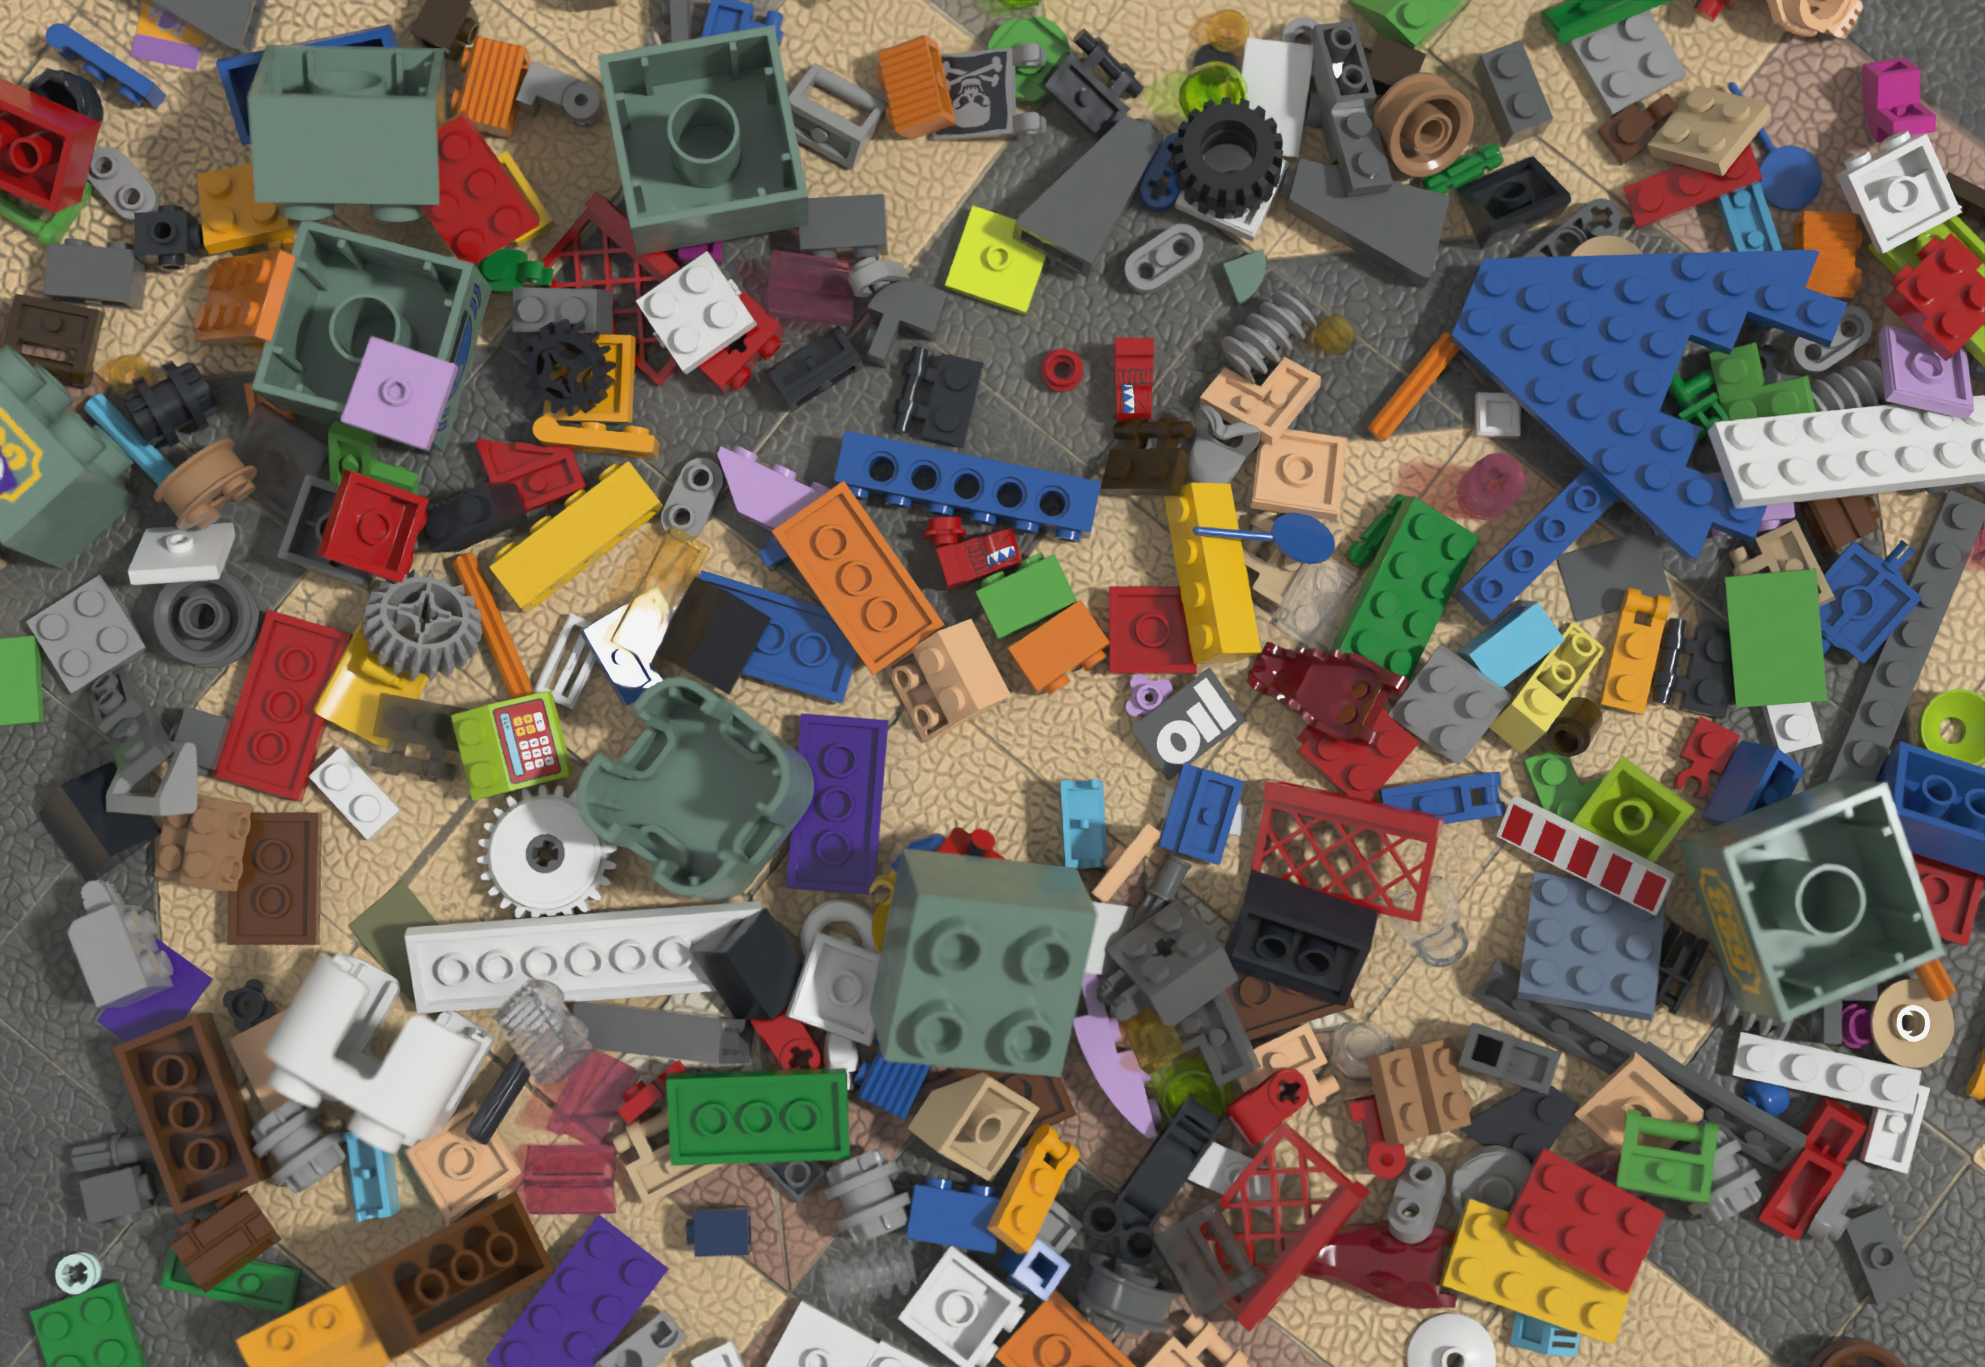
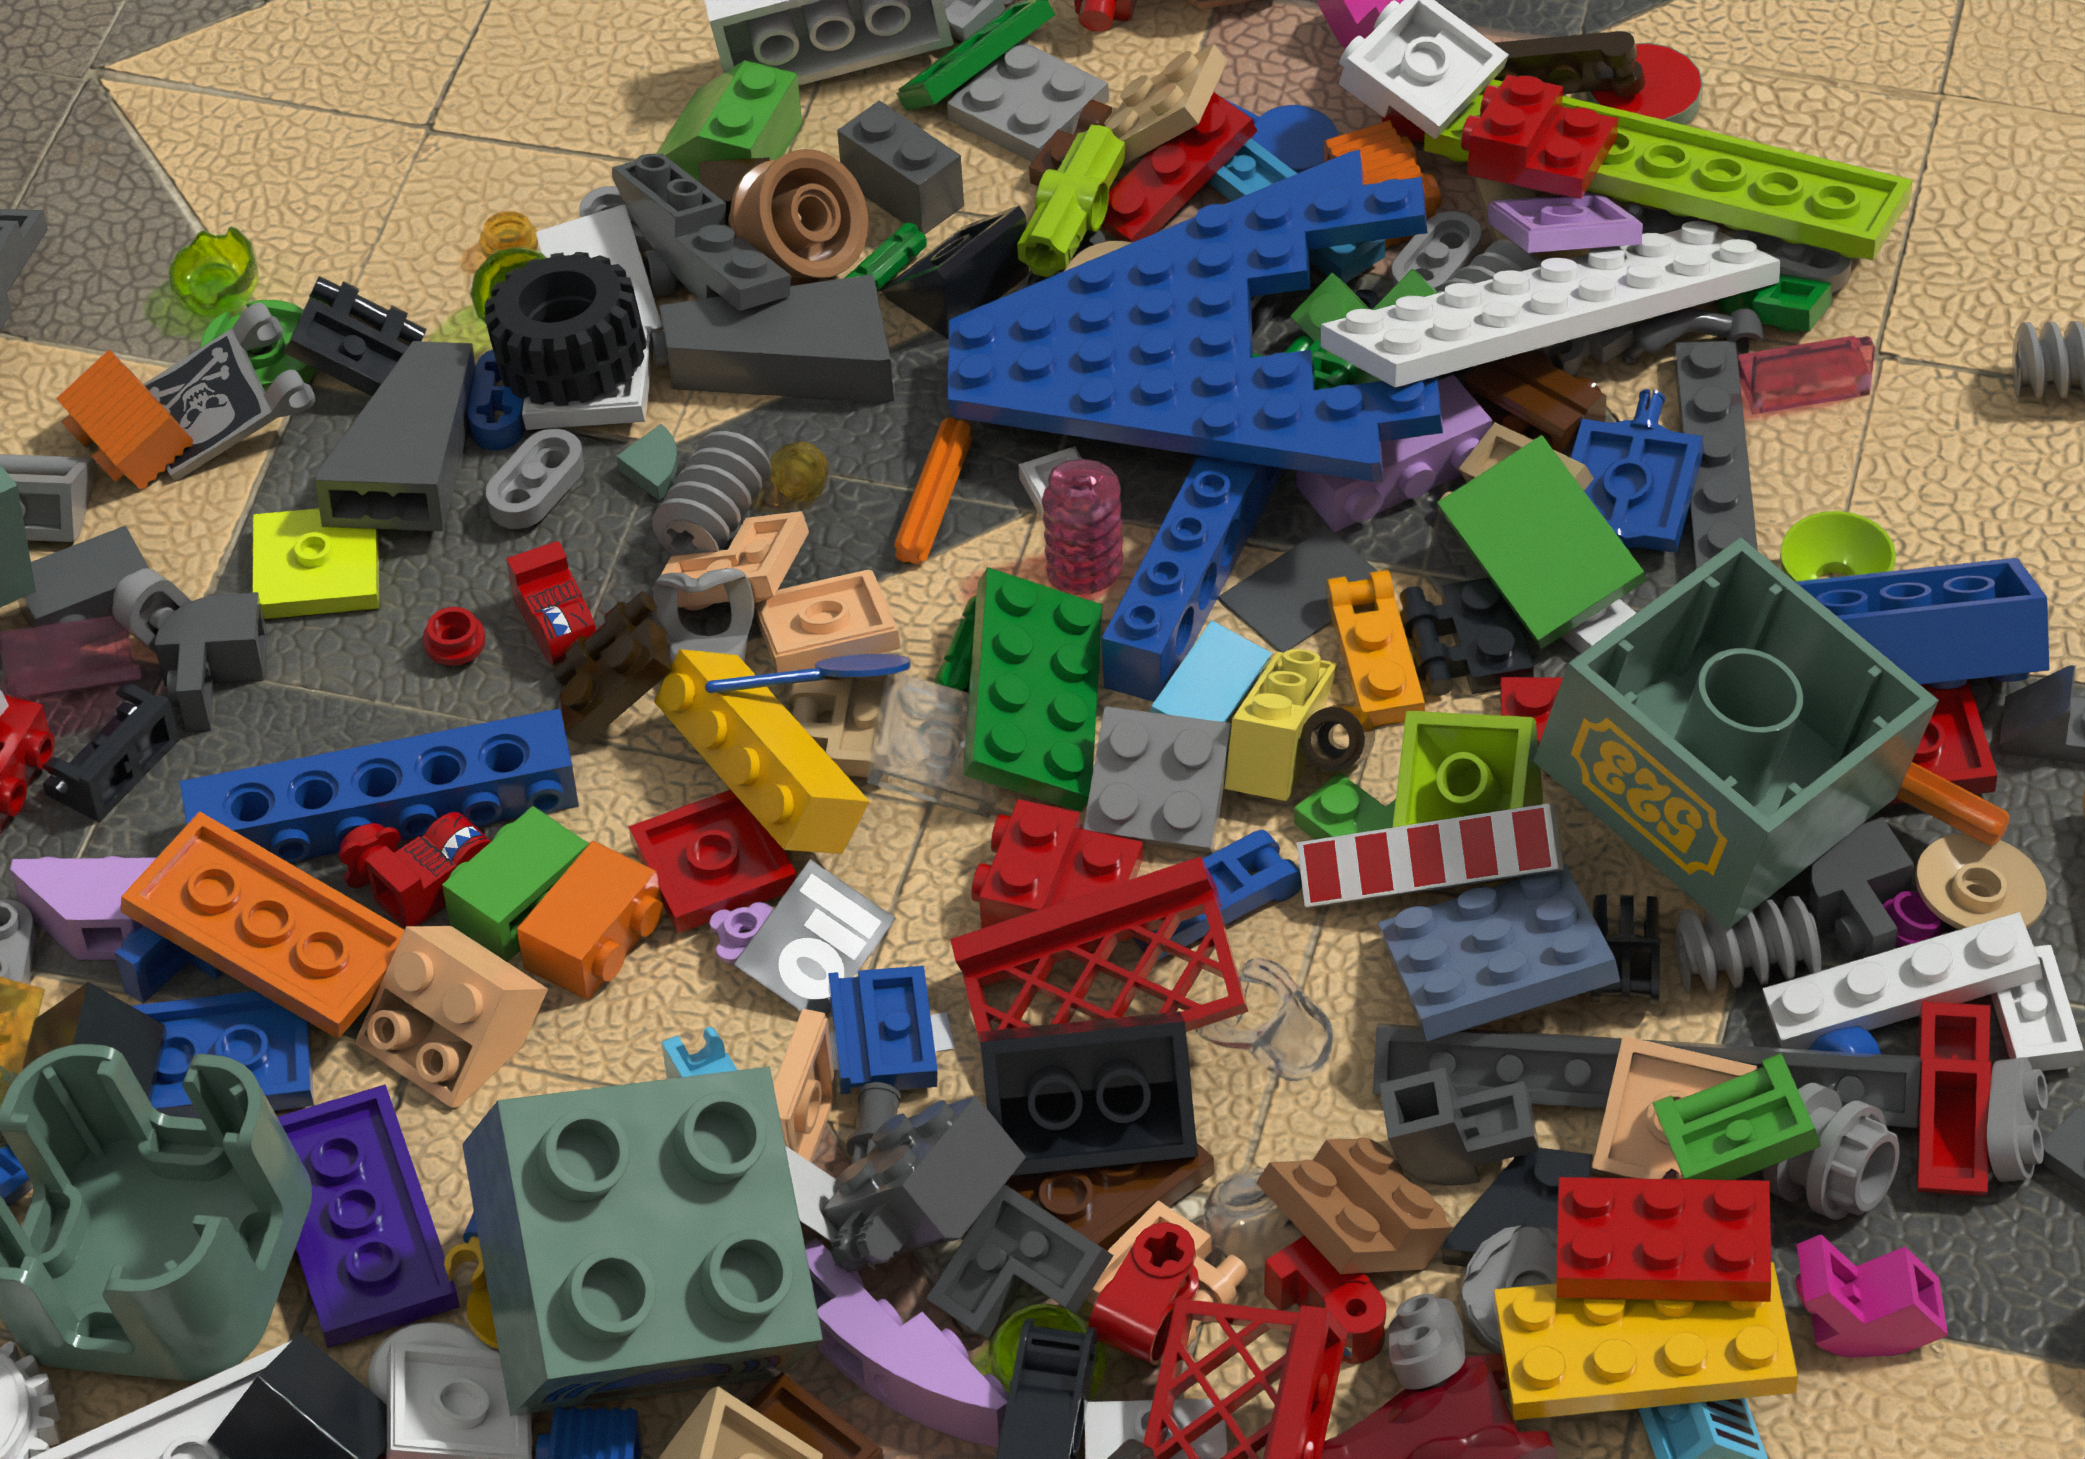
camera: 20 degrees left, 35 degrees down
(951, 398) = (310, 705): black plate -> none
(1152, 1041) = (934, 1281): clear yellow plate -> none
(1330, 691) = (989, 802): dark red animal -> none
(1610, 189) = (1071, 201): none -> lime piece
(1688, 1292) = (1869, 1307): none -> dark pink brick

